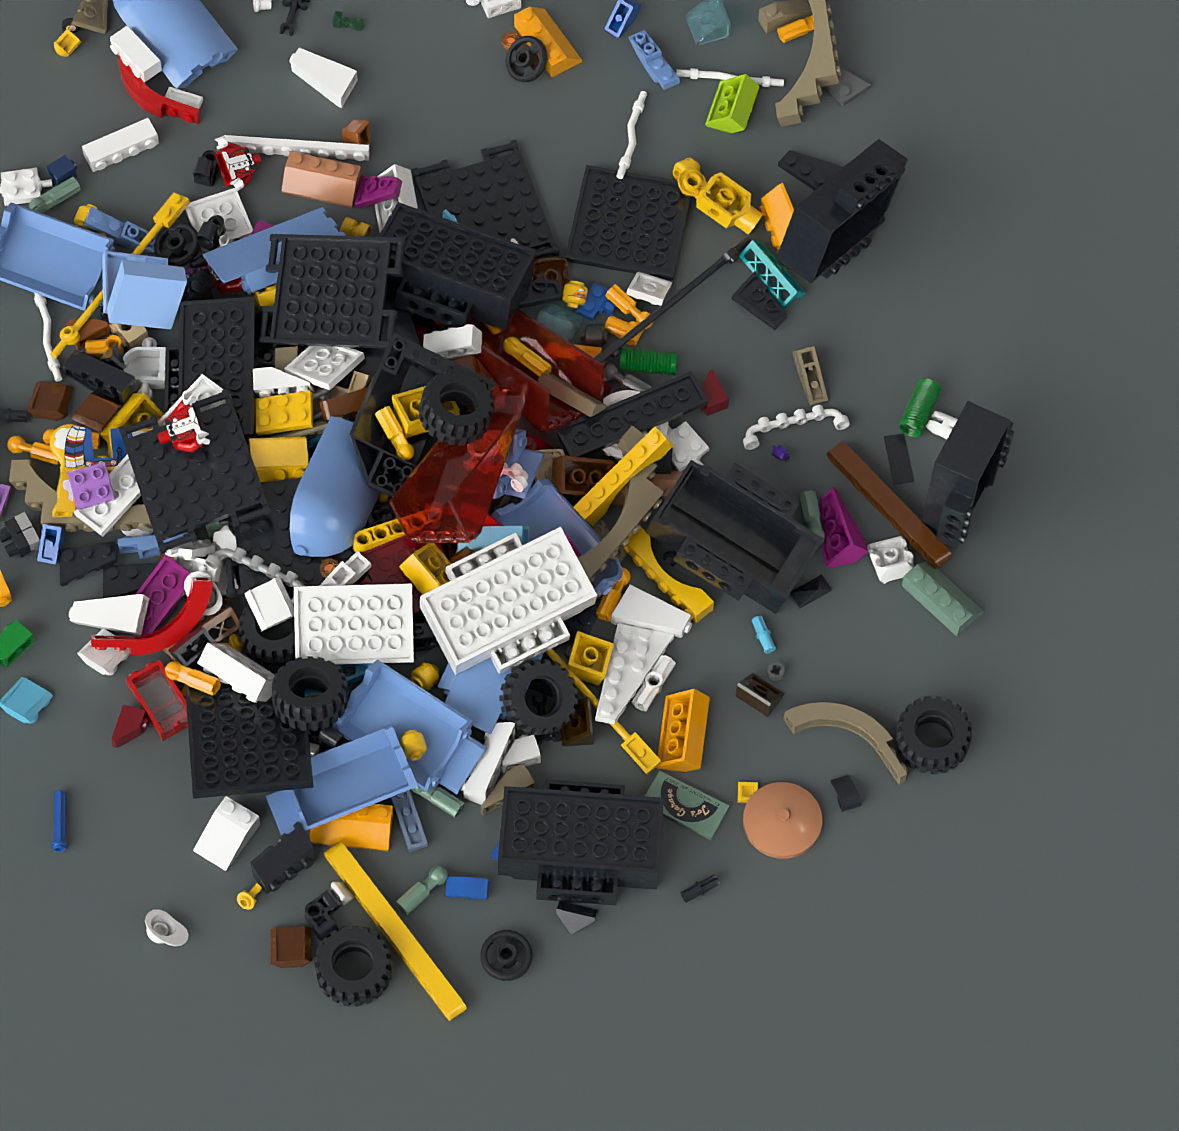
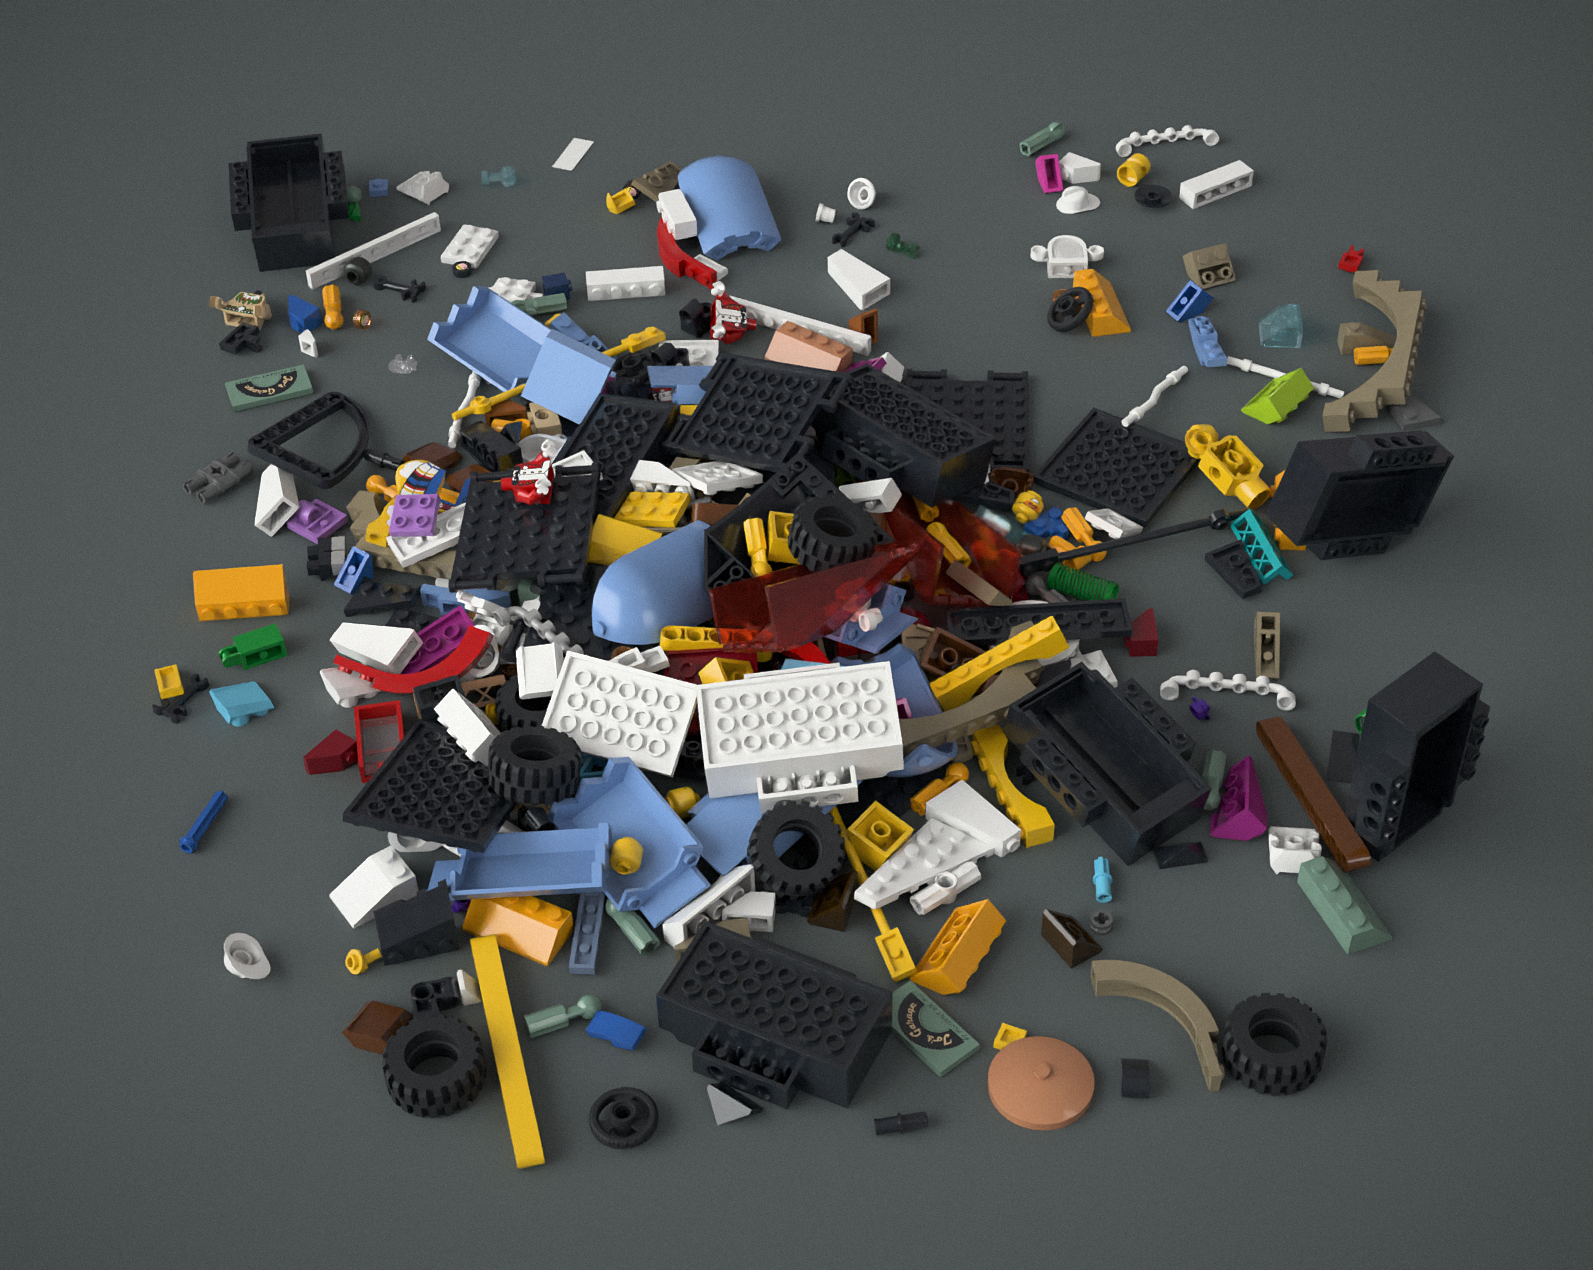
camera: 25 degrees right, 20 degrees down
(192, 677) = (421, 721): light orange piece -> none

